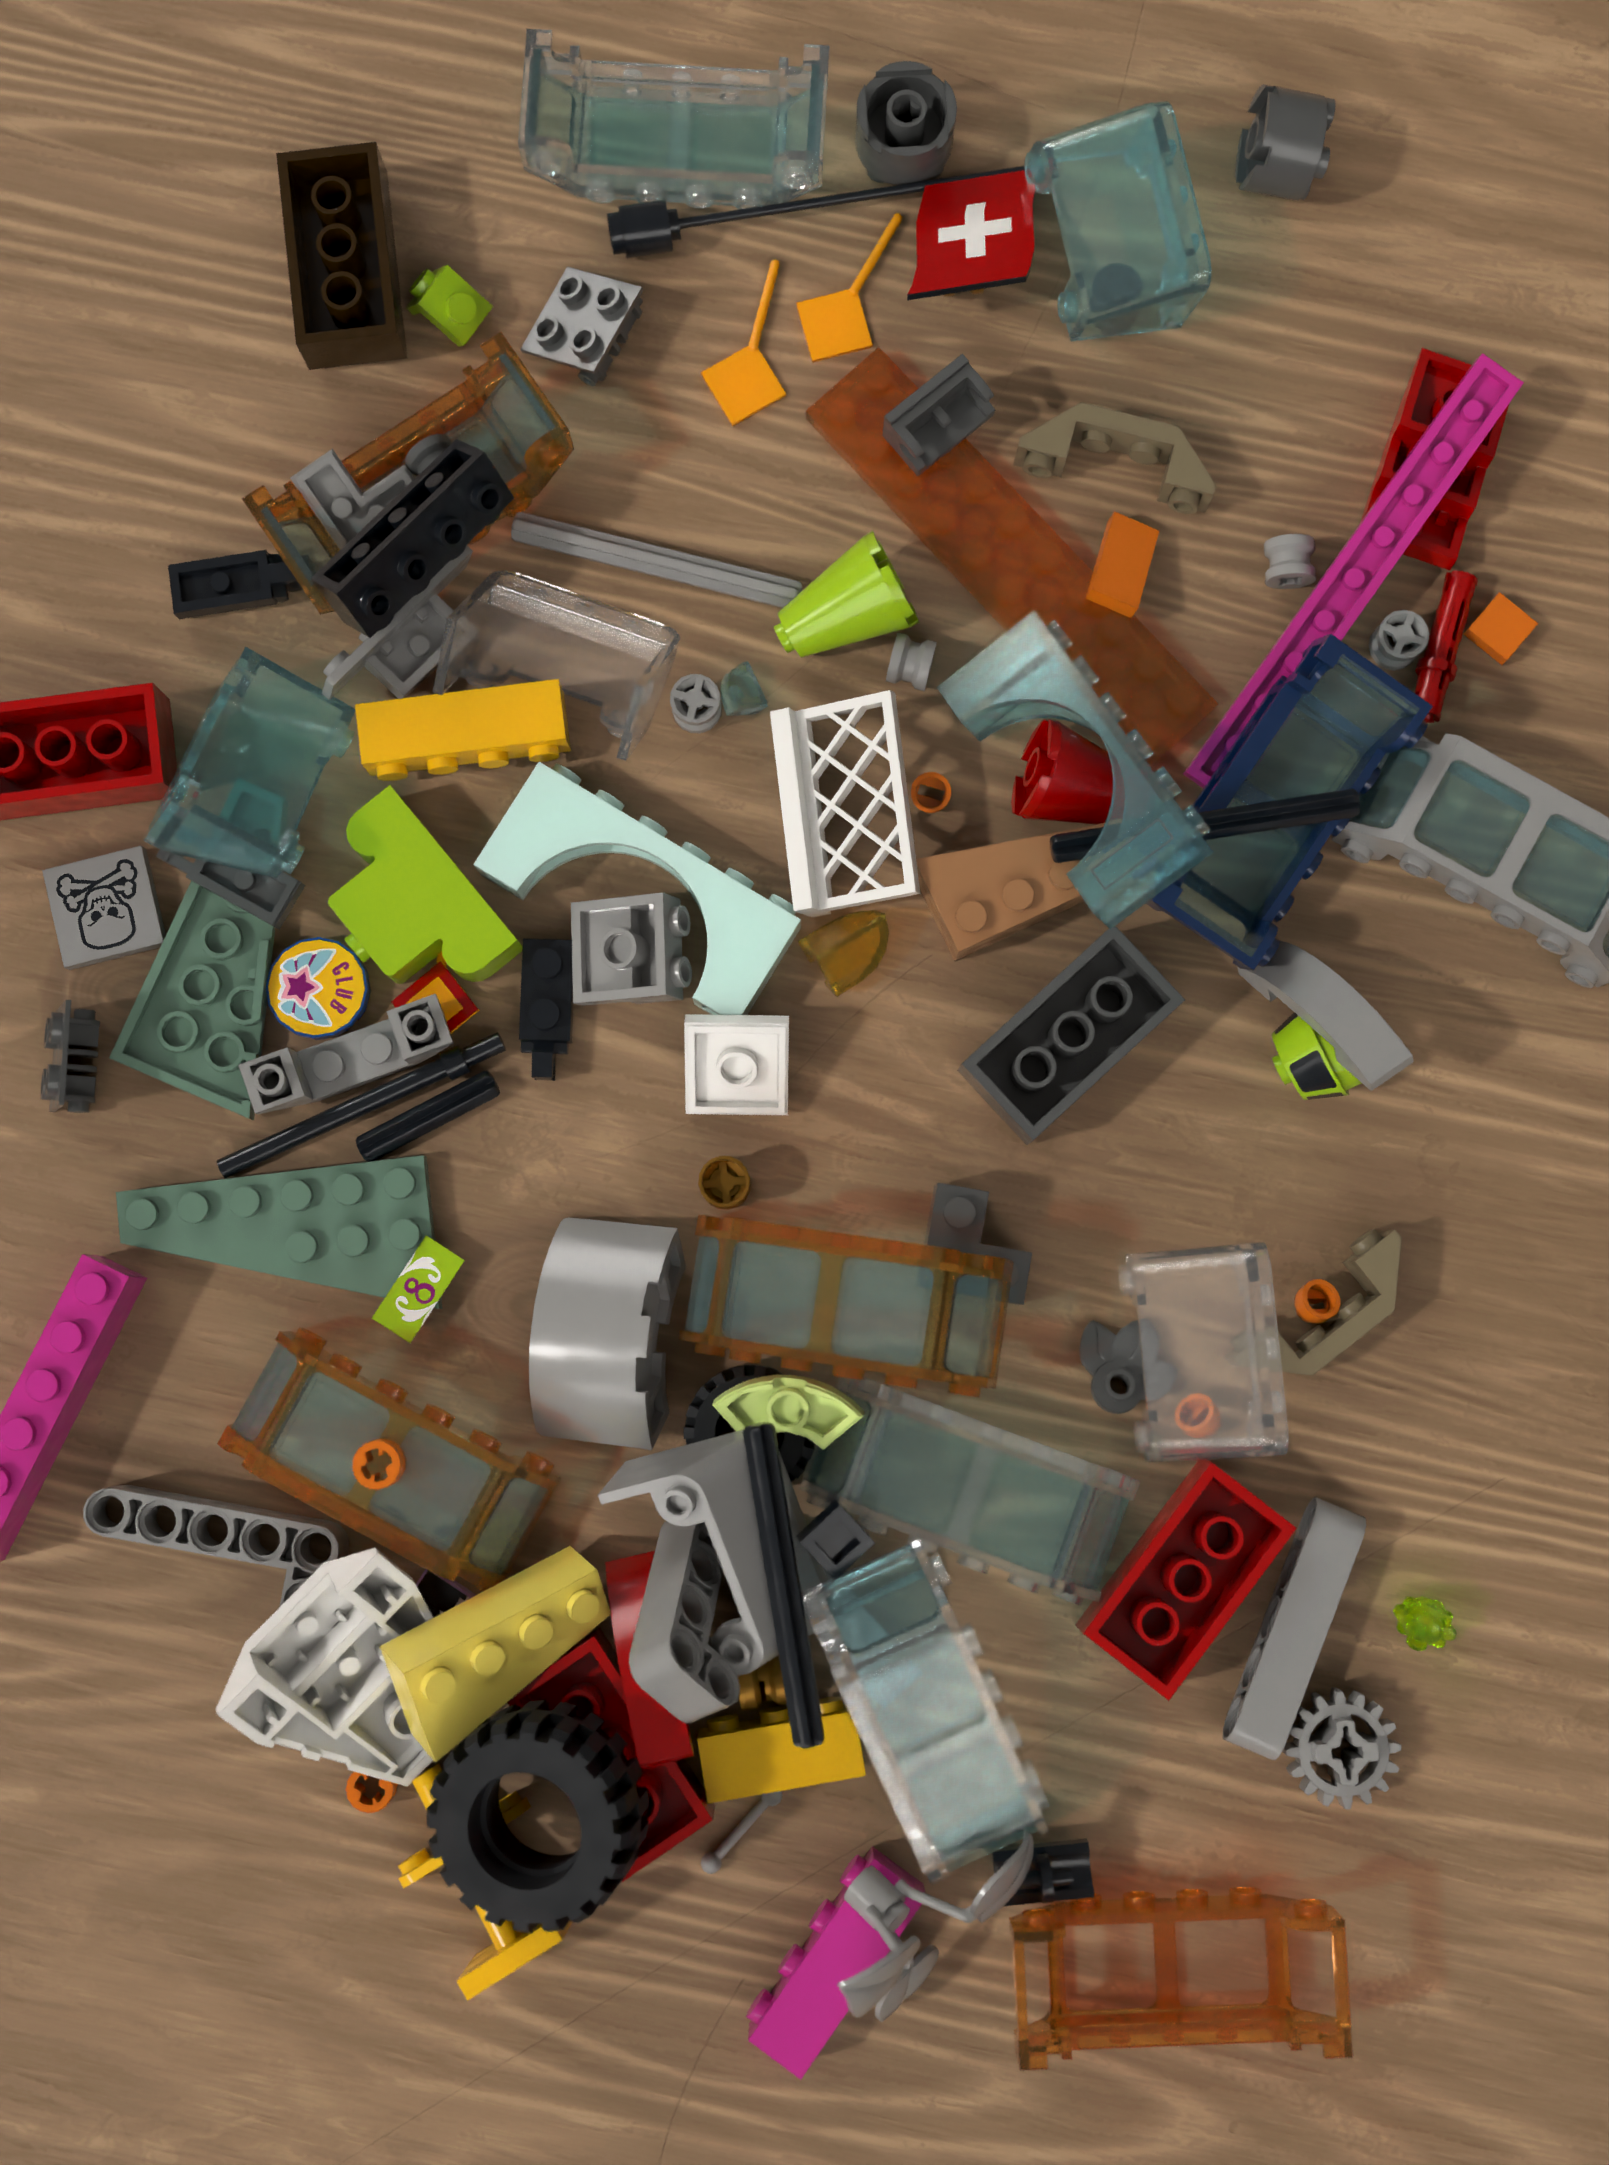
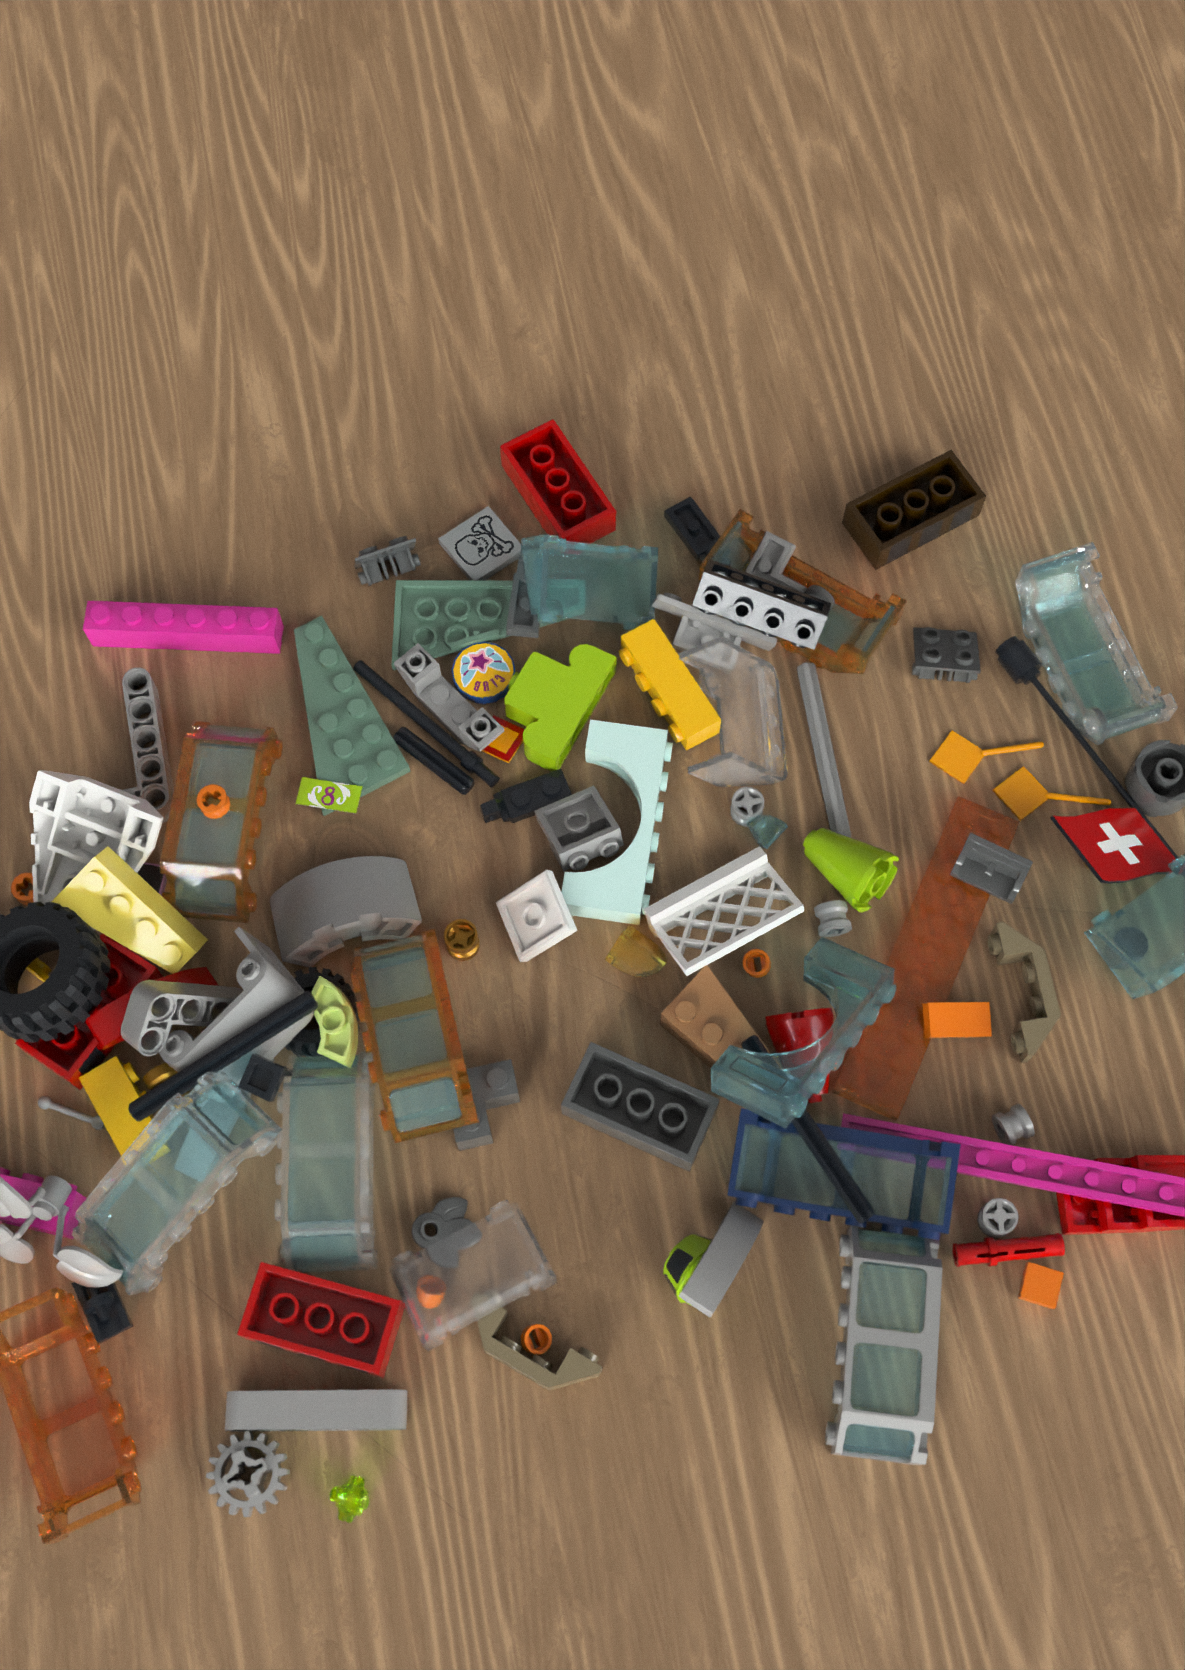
camera: 70 degrees right, 15 degrees down
(448, 303) = (917, 577): lime bracket -> none

